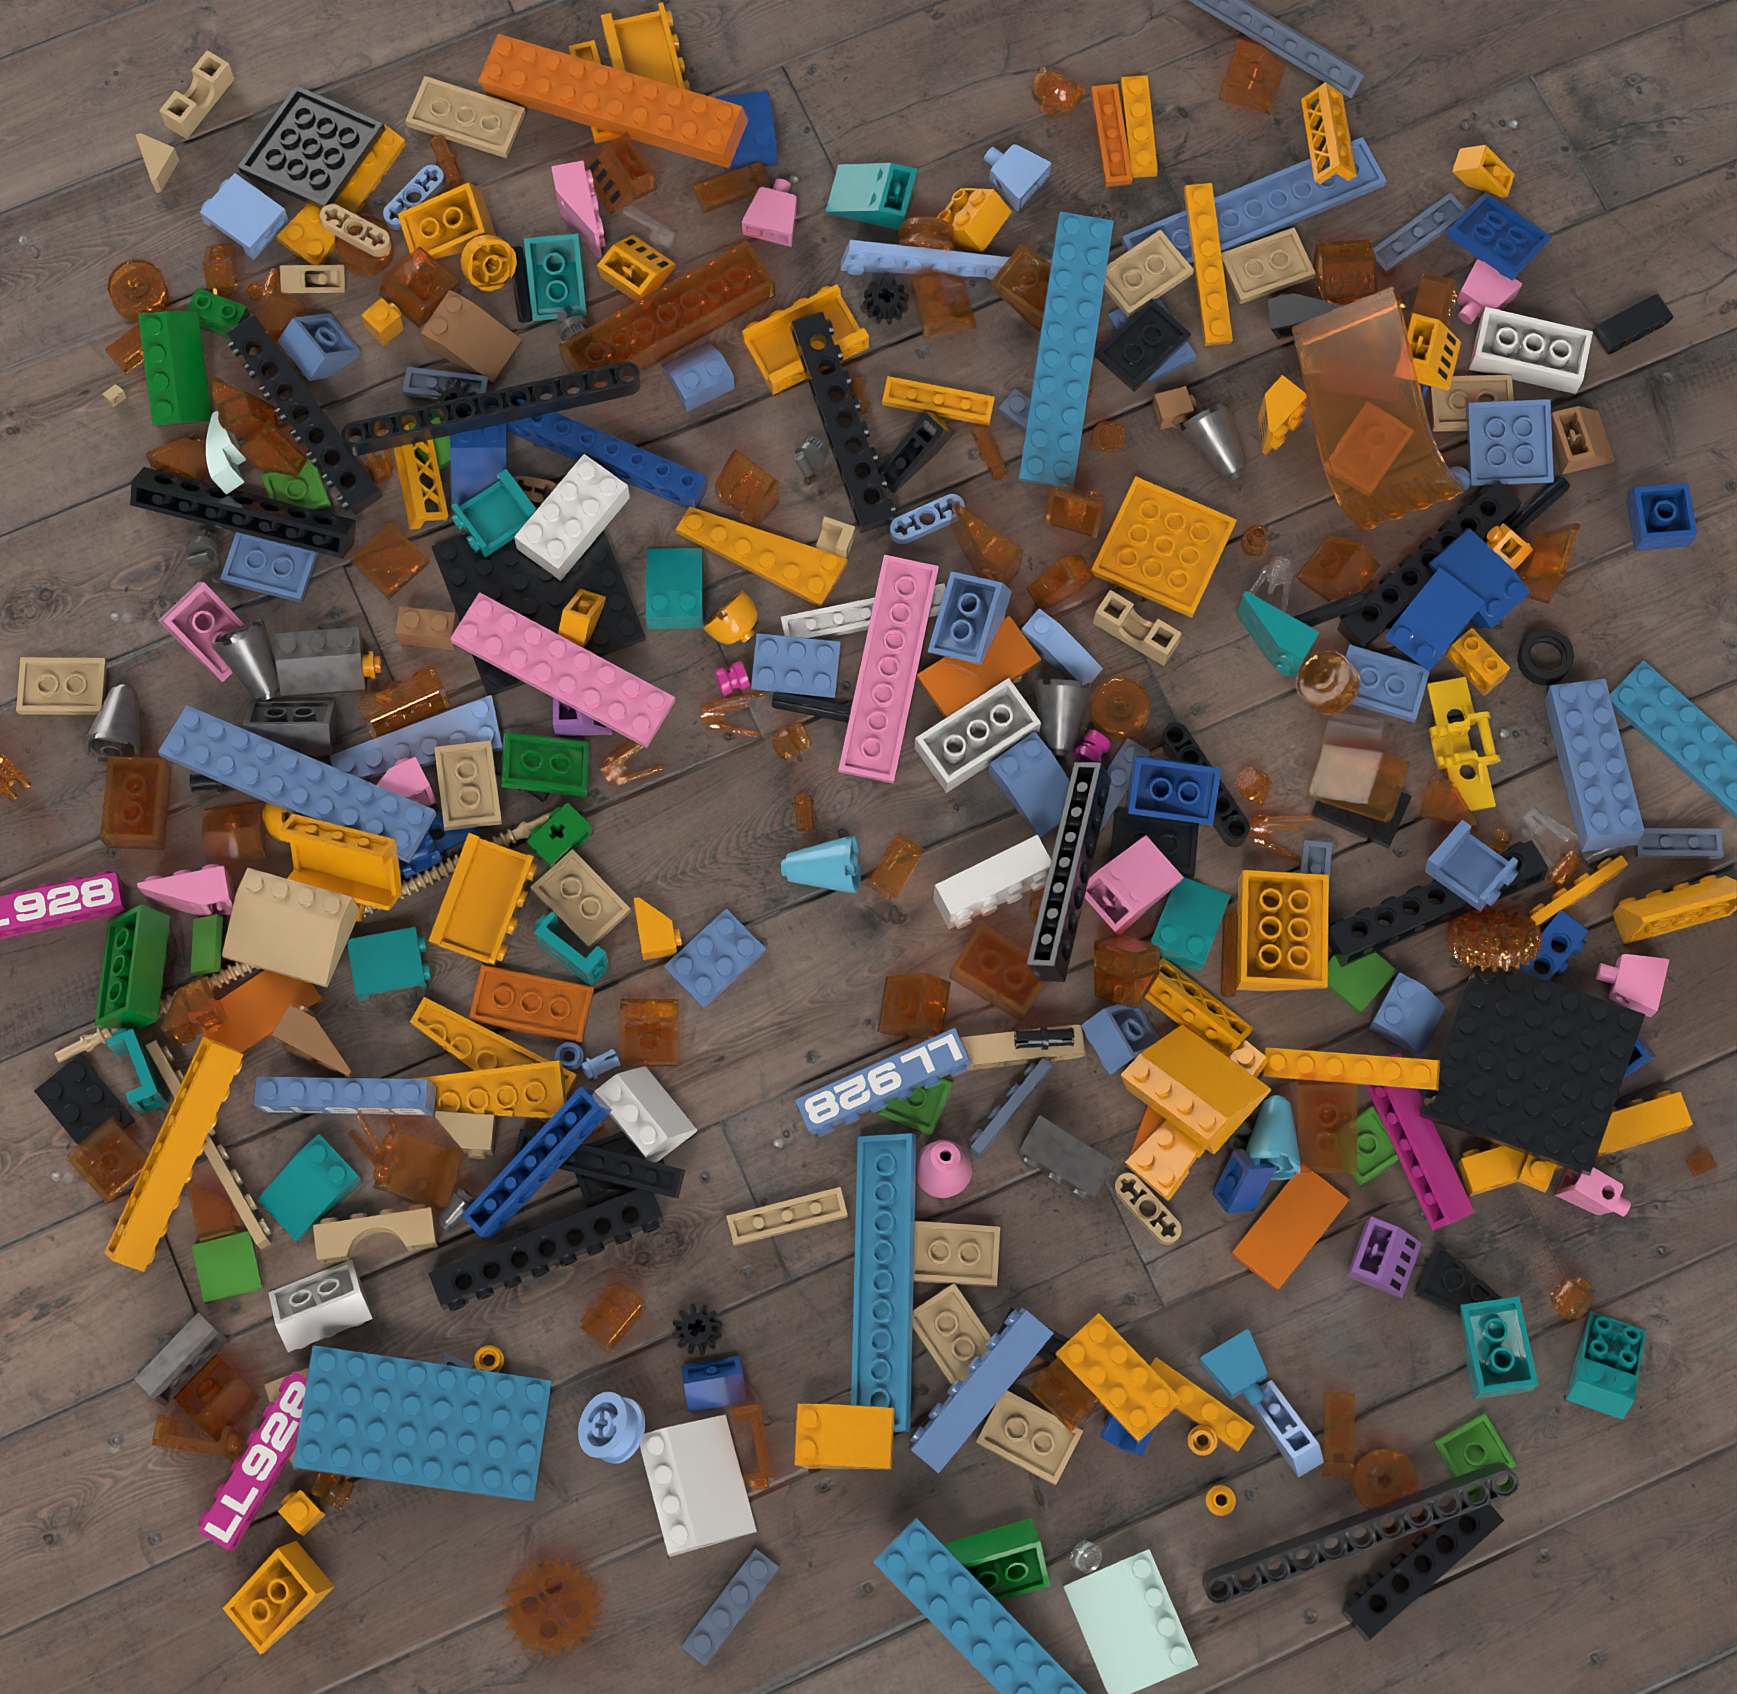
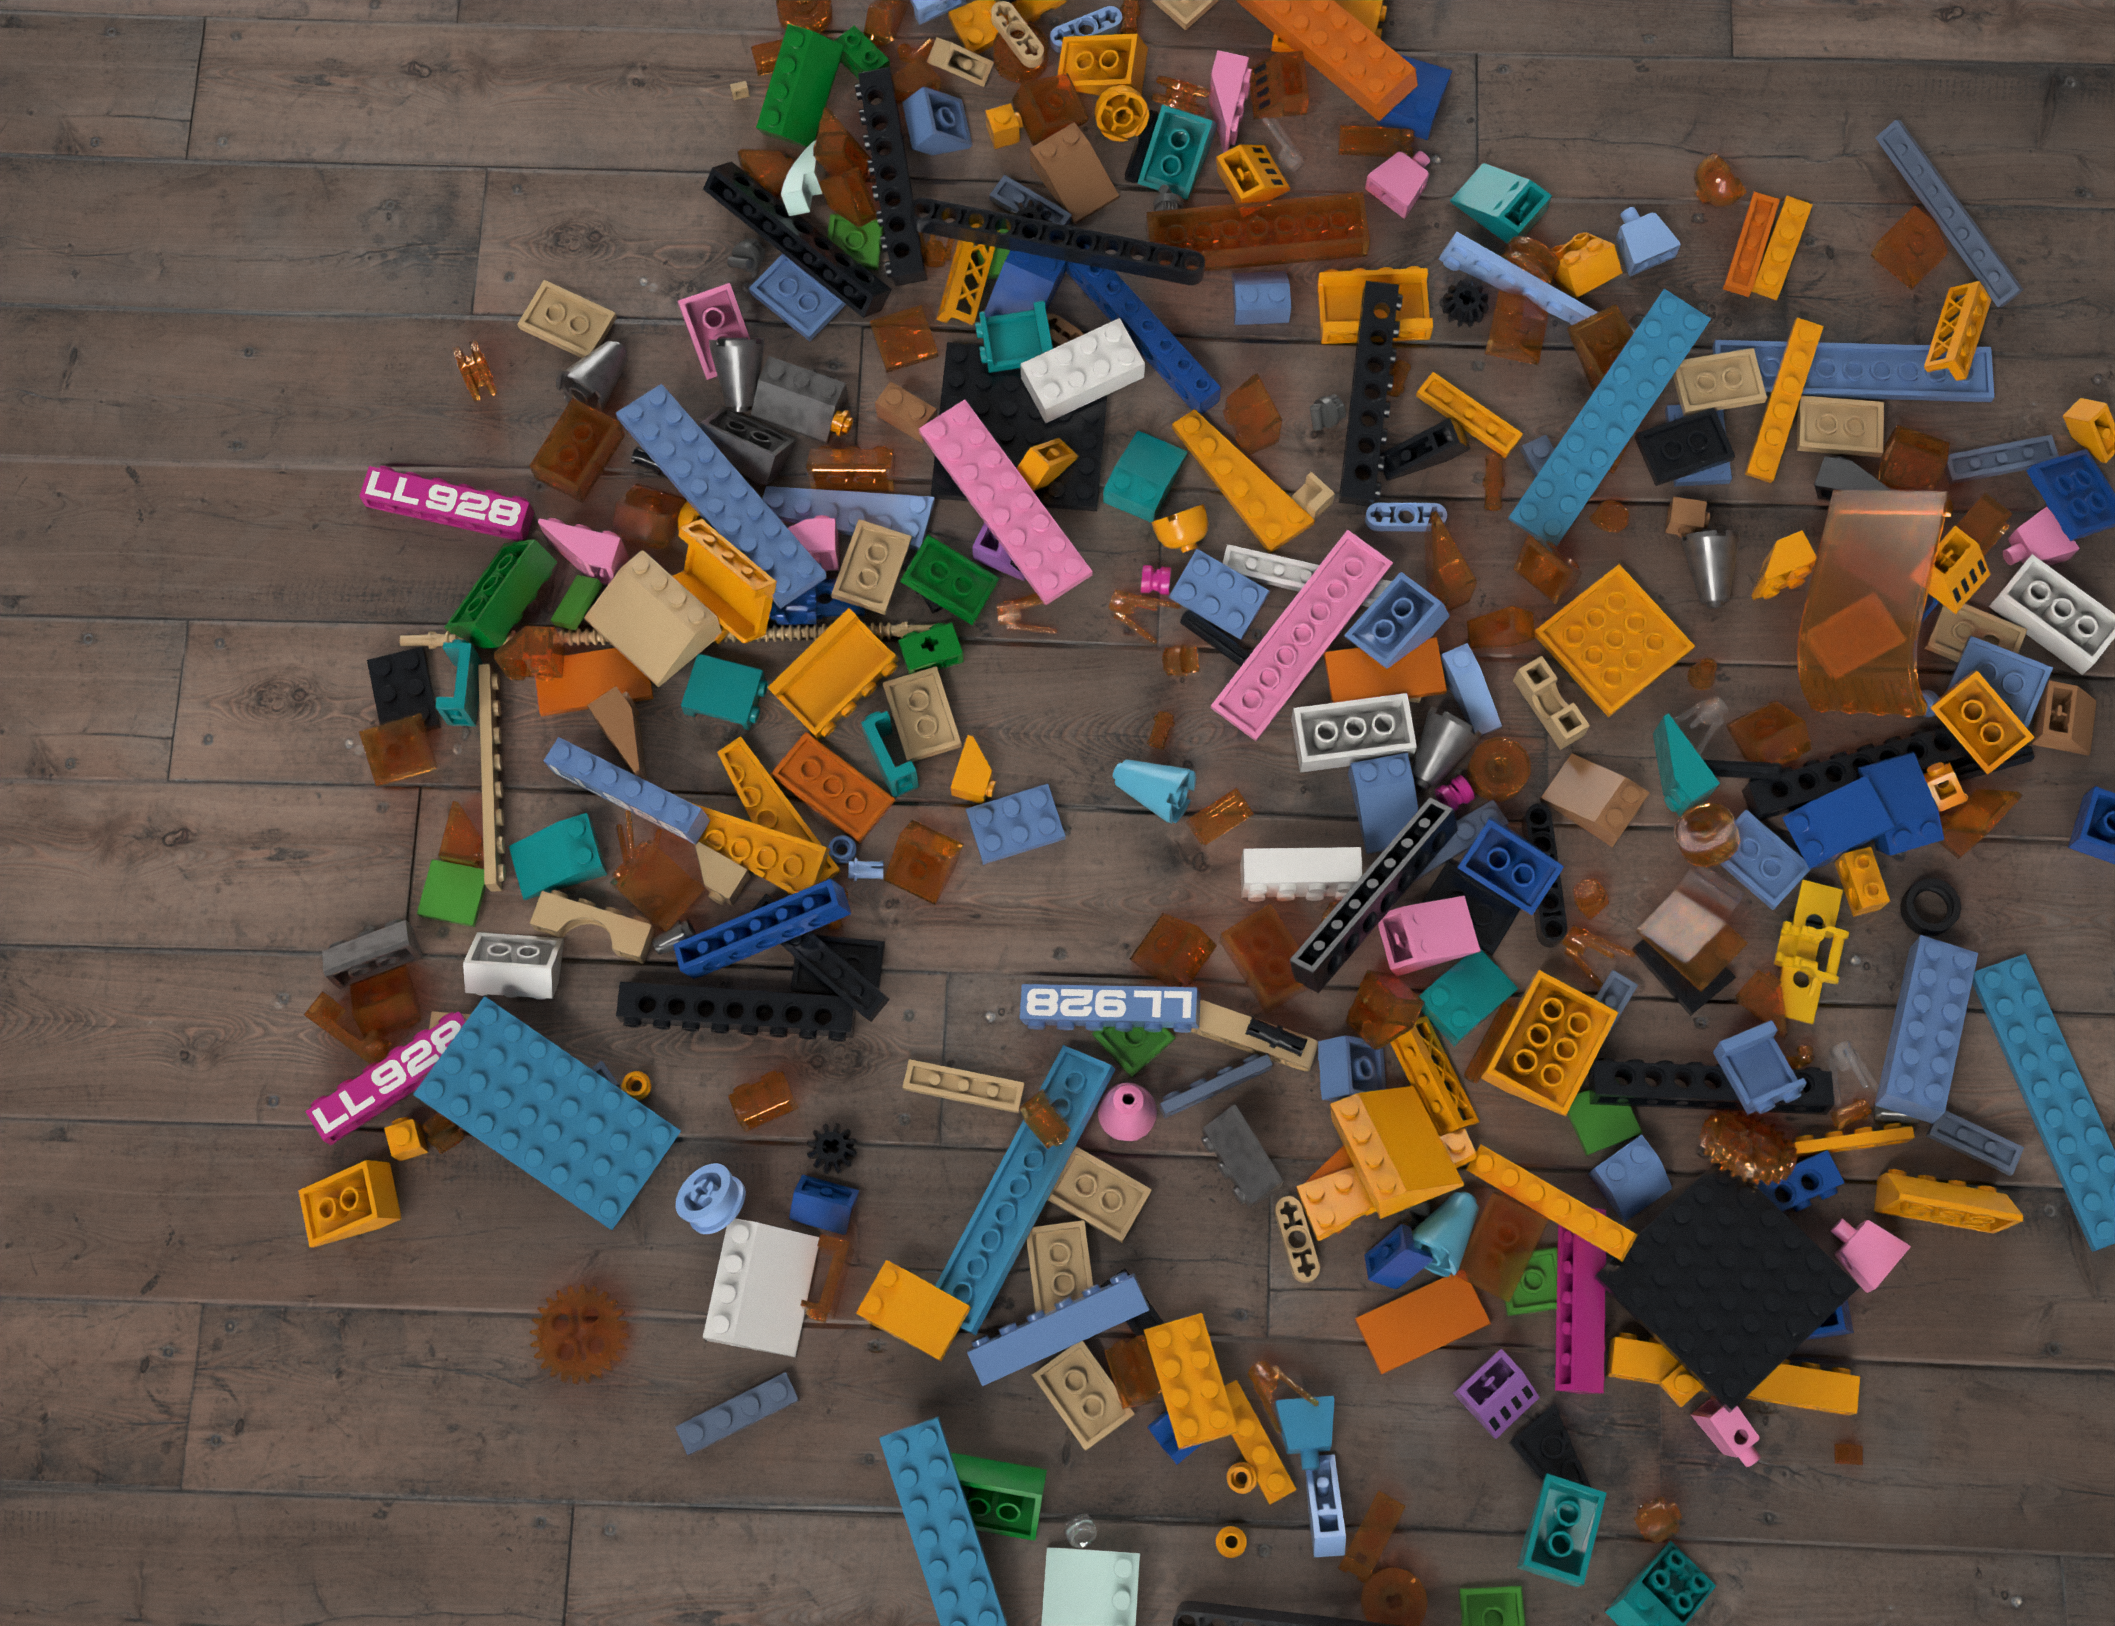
camera: 30 degrees right, 0 degrees up
(174, 1154) = (452, 770): light orange brick -> none
(535, 221) = (1181, 95): none -> clear orange wheel
(646, 1113) = (882, 931): white slope -> none
(877, 1210) = (1045, 1120): none -> clear orange slope
(1181, 1346) = (1266, 1381): none -> clear orange plant
(1215, 695) = (1594, 798): none -> medium nougat slope
(1513, 474) = (1981, 721): none -> light orange slope

